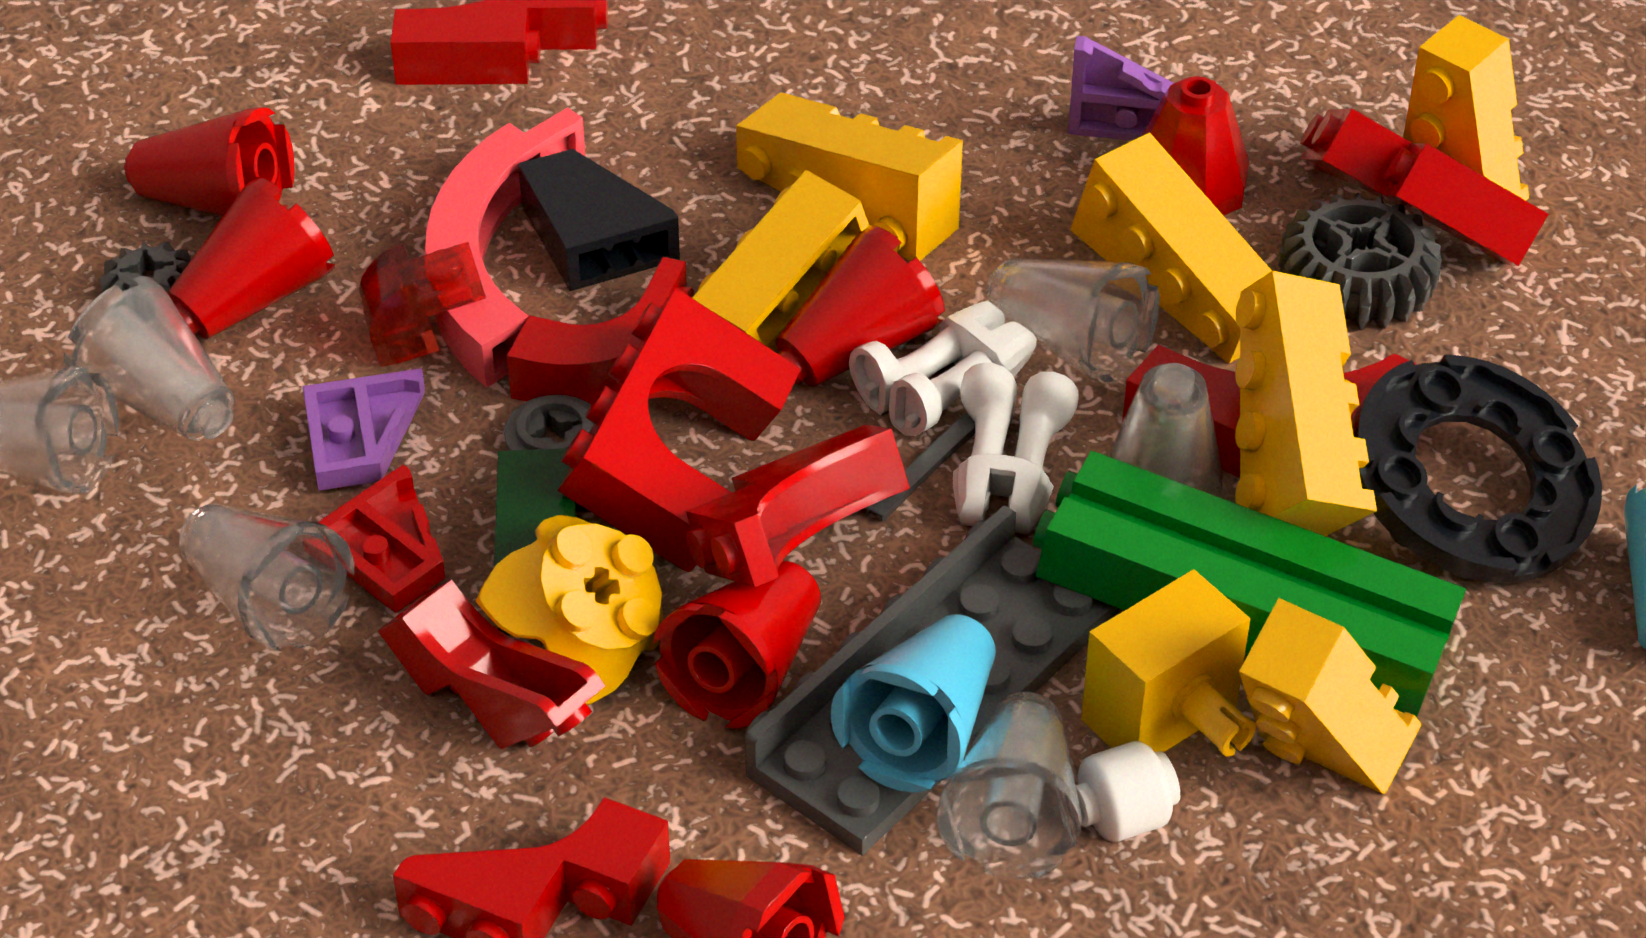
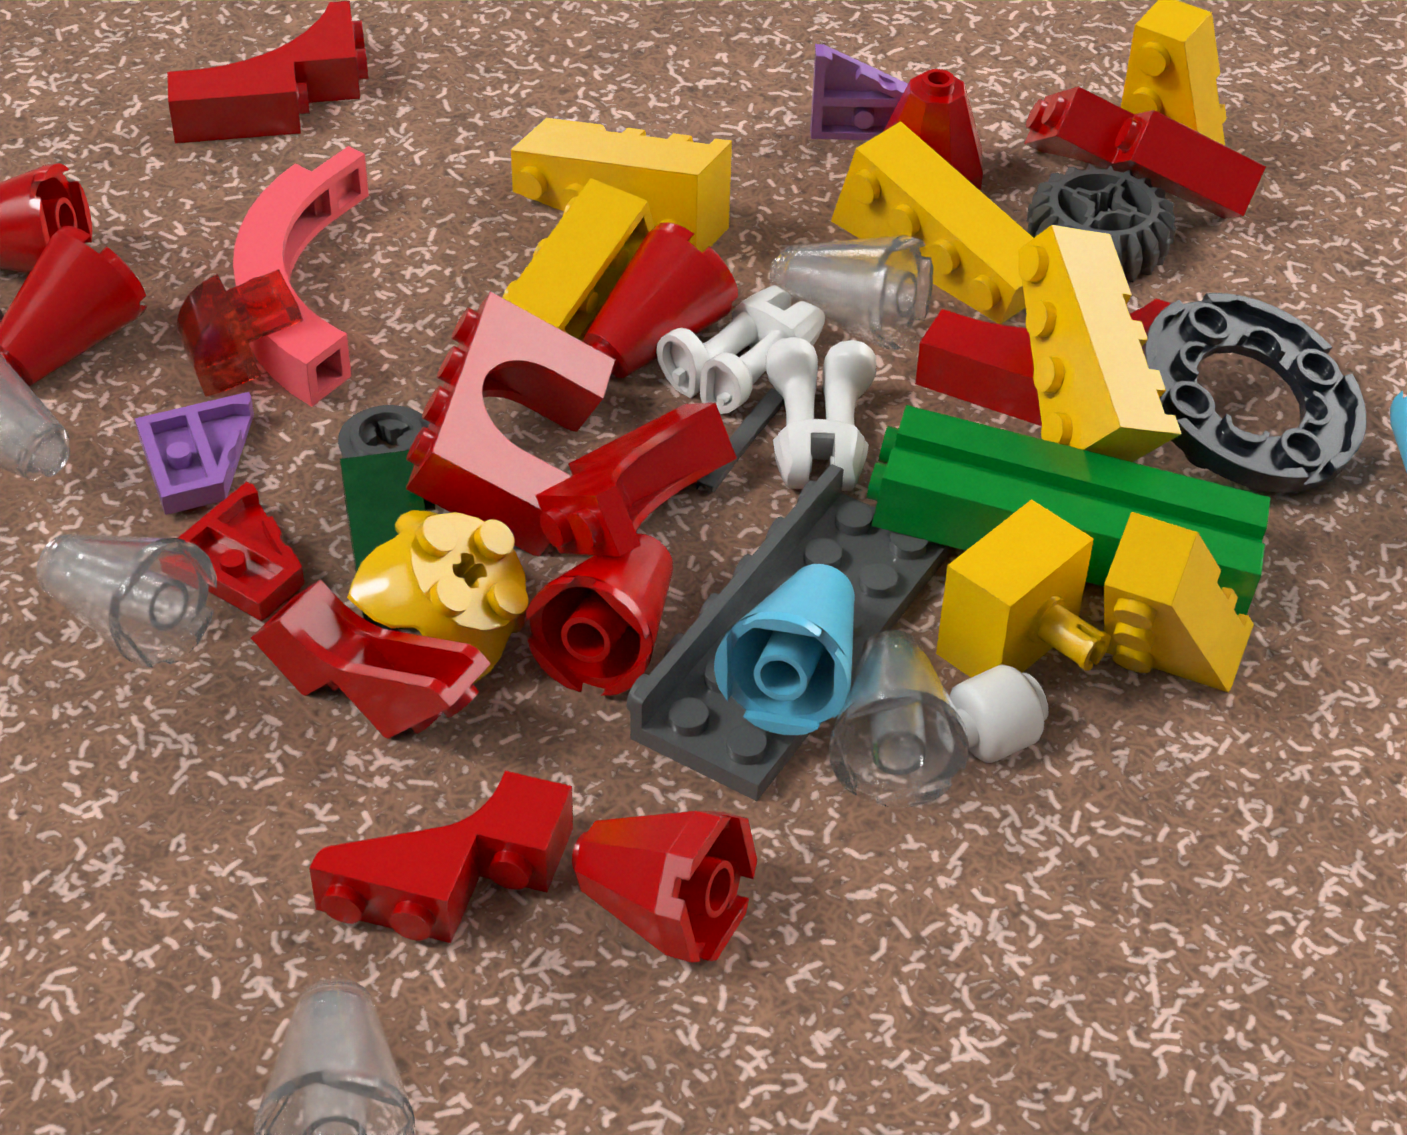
camera: 10 degrees left, 0 degrees up
(576, 358) = (401, 369): red arch -> none
(594, 219) = (389, 245): black slope -> none
(1172, 430) = (975, 376): clear cone -> none

